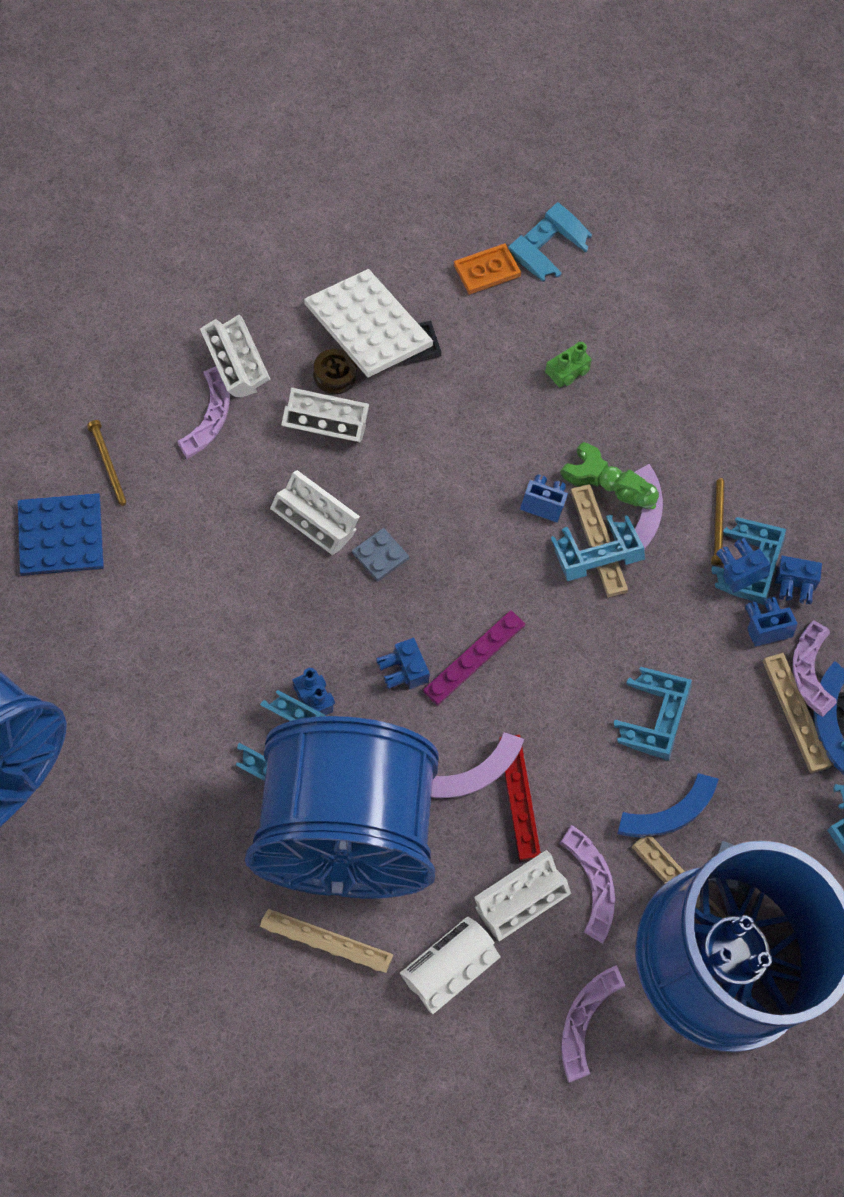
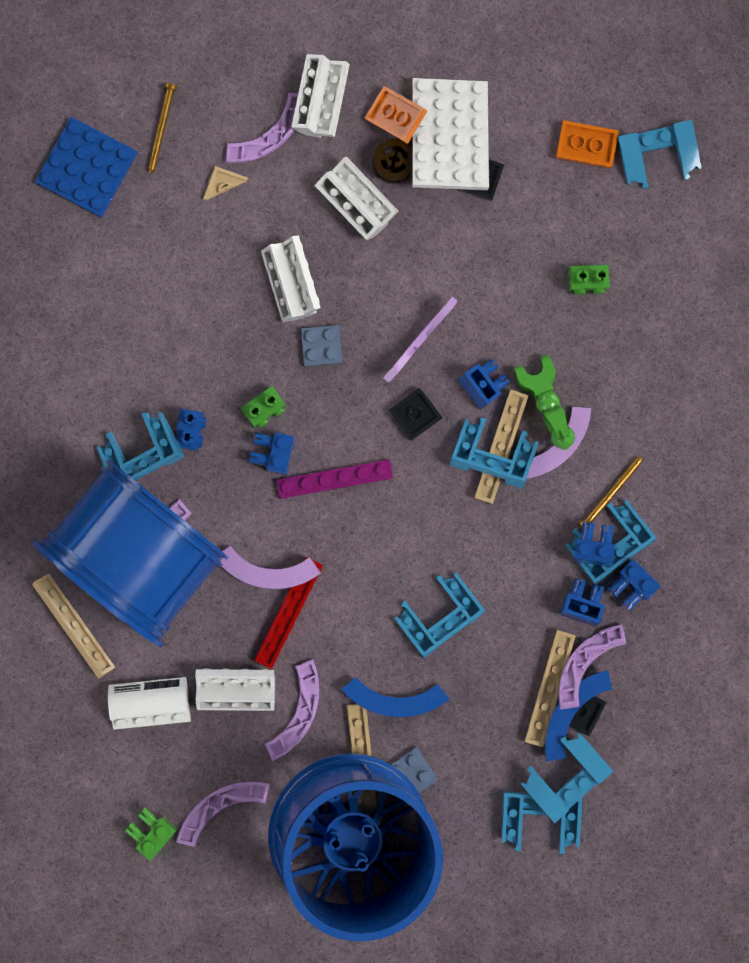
camera: 35 degrees right, 20 degrees up
(194, 474) = (222, 181): none -> tan tile
(311, 331) = (395, 114): none -> orange plate
(367, 634) = (264, 407): none -> bright green brick
(461, 514) = (420, 339): none -> lavender tile
(505, 559) = (415, 414): none -> black plate
(549, 1083) = (152, 842): none -> bright green brick

